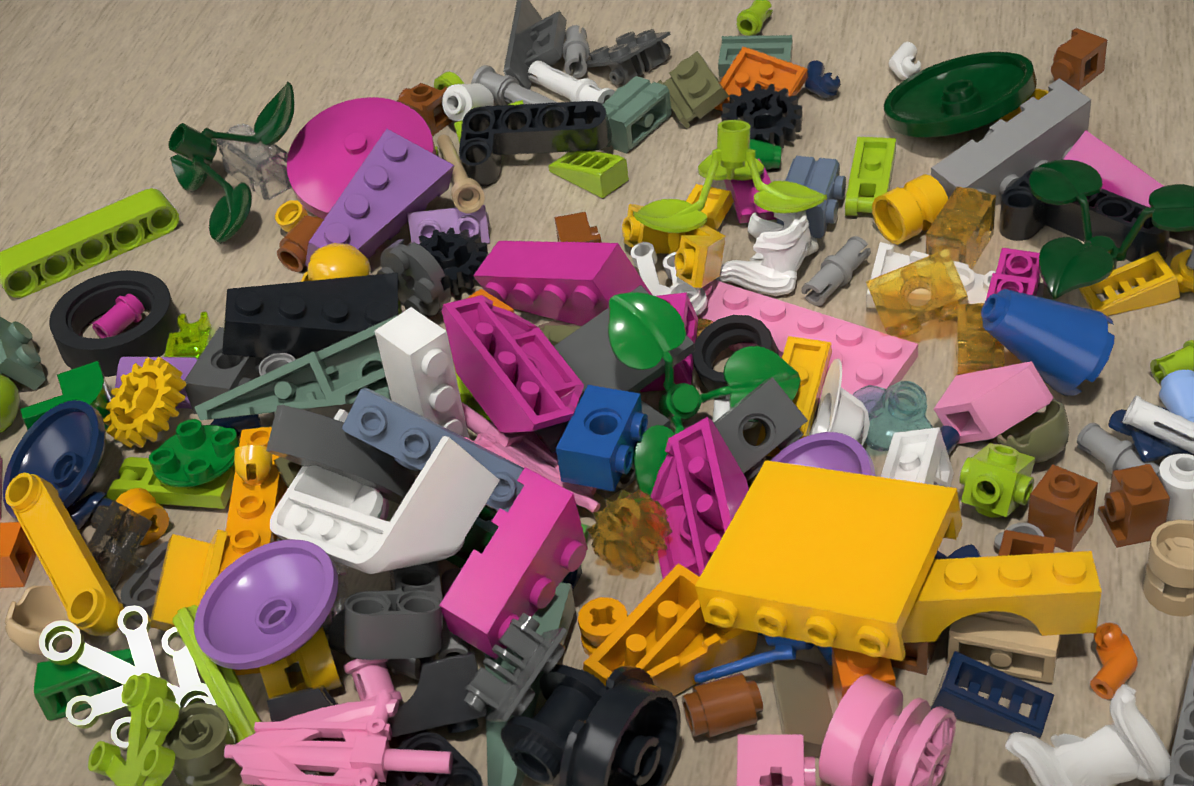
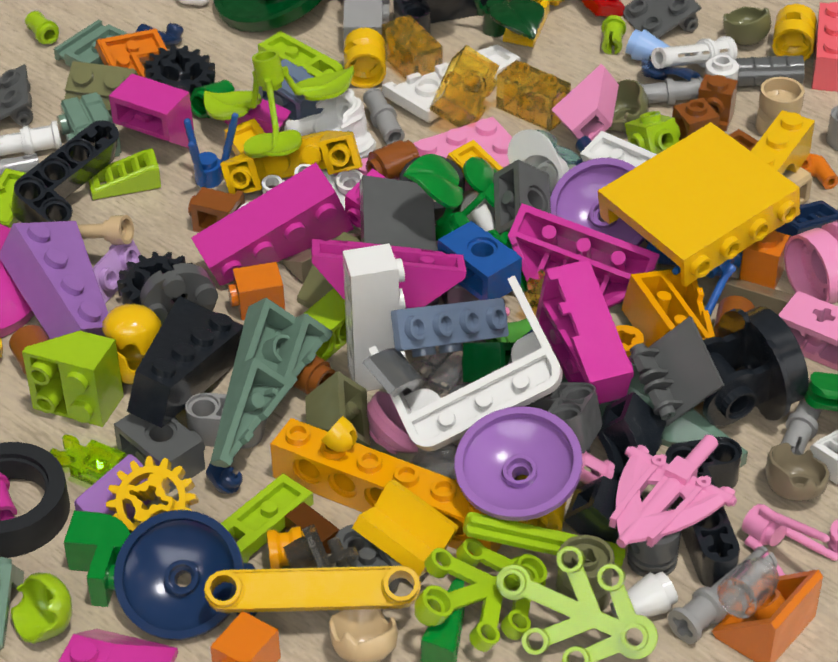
camera: 65 degrees left, 0 degrees up
(184, 518) = (305, 516): none -> reddish brown piece
(194, 454) = (262, 484): green dish -> none
(258, 257) = (75, 376): none -> lime slope
(637, 196) = (206, 164): none -> blue plant
(659, 130) = (152, 108): none -> dark pink slope
(742, 300) = (392, 158): none -> dark orange brick
(1017, 272) = (490, 46): dark pink slope -> none
(1058, 337) = (573, 53): blue cone -> none

